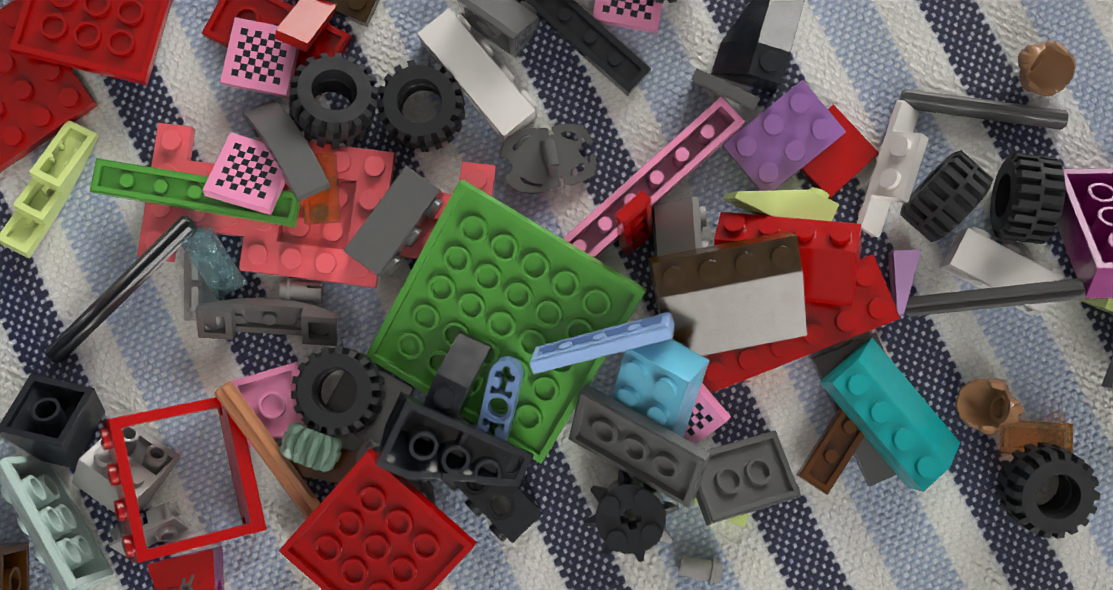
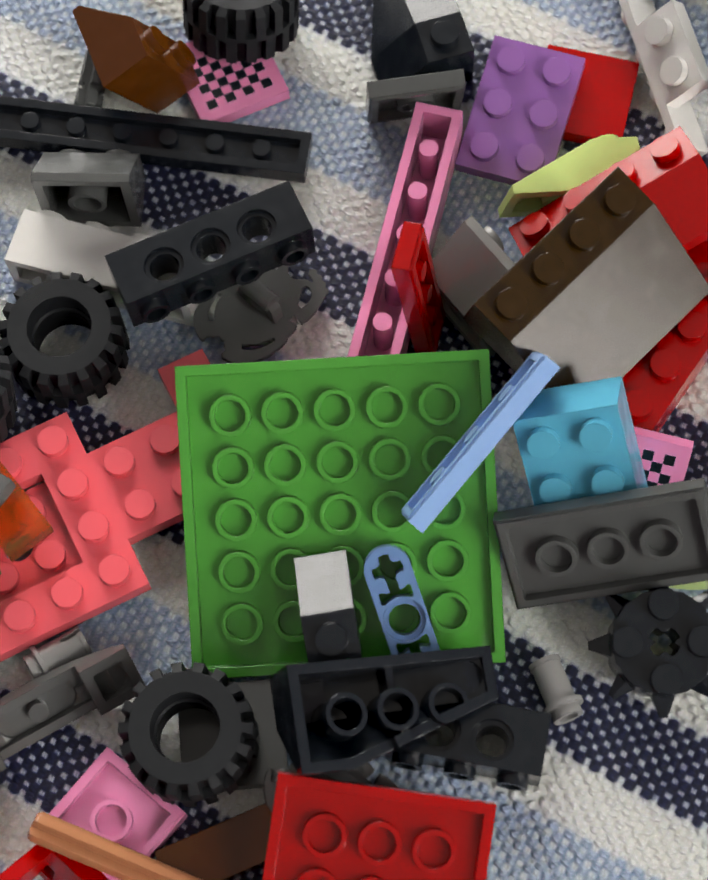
camera: 30 degrees left, 15 degrees down
(310, 447) = (200, 825): sand green gear -> none
(395, 223) = (125, 483): dark grey brick -> none
(486, 95) = (224, 232): none -> black brick
(558, 497) = (556, 690): none -> light grey pin

